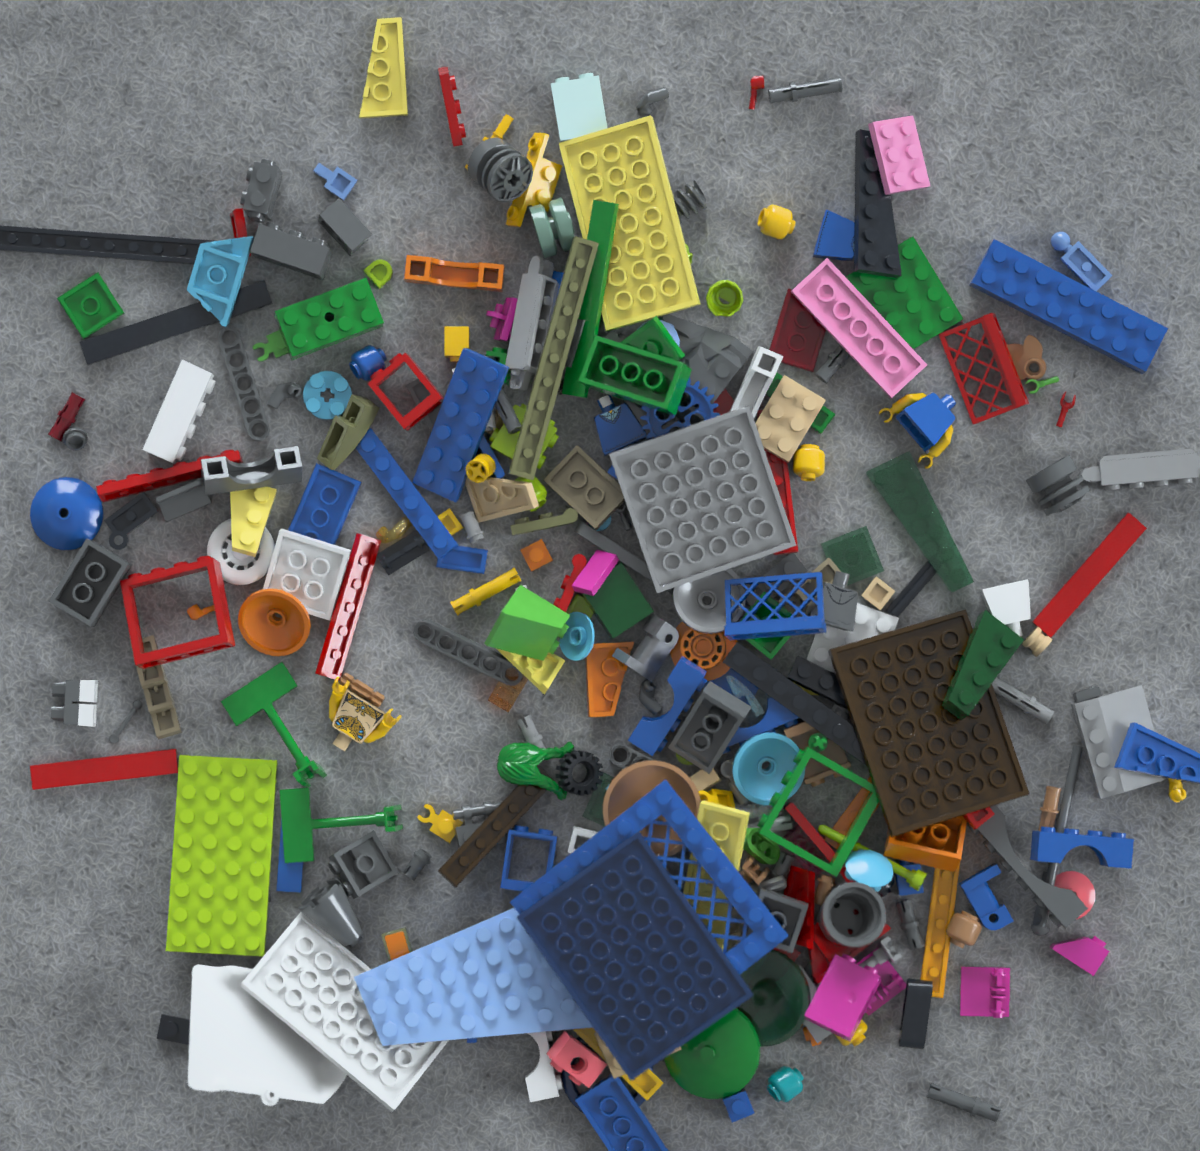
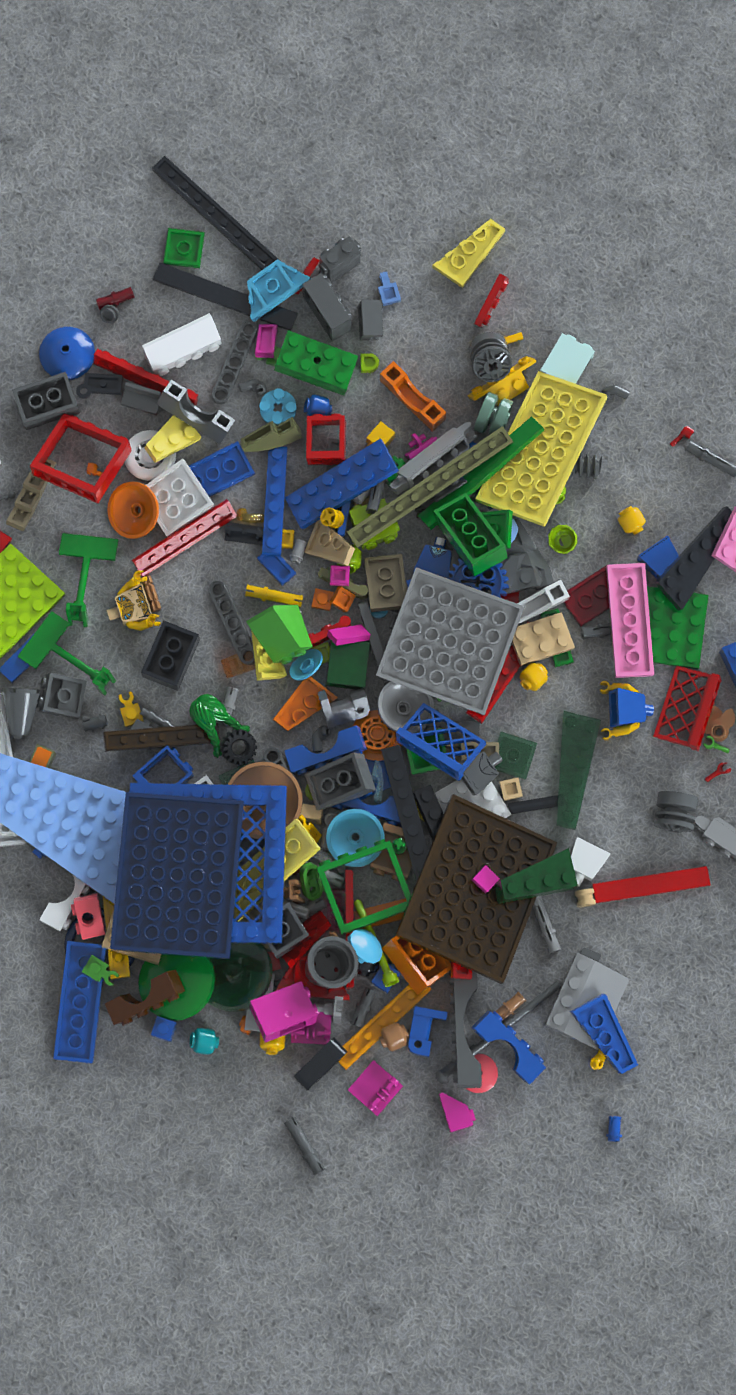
camera: 40 degrees right, 10 degrees down
(258, 336) = (266, 341): none -> dark pink tile
(436, 737) = (170, 655): none -> black brick
(536, 520) = (339, 575): none -> dark pink tile
(556, 539) = (342, 599): none -> orange plate
(628, 1103) = (97, 970): none -> bright green plate
(685, 1114) = (163, 988): none -> reddish brown arch
(930, 707) = (485, 879): none -> dark pink tile

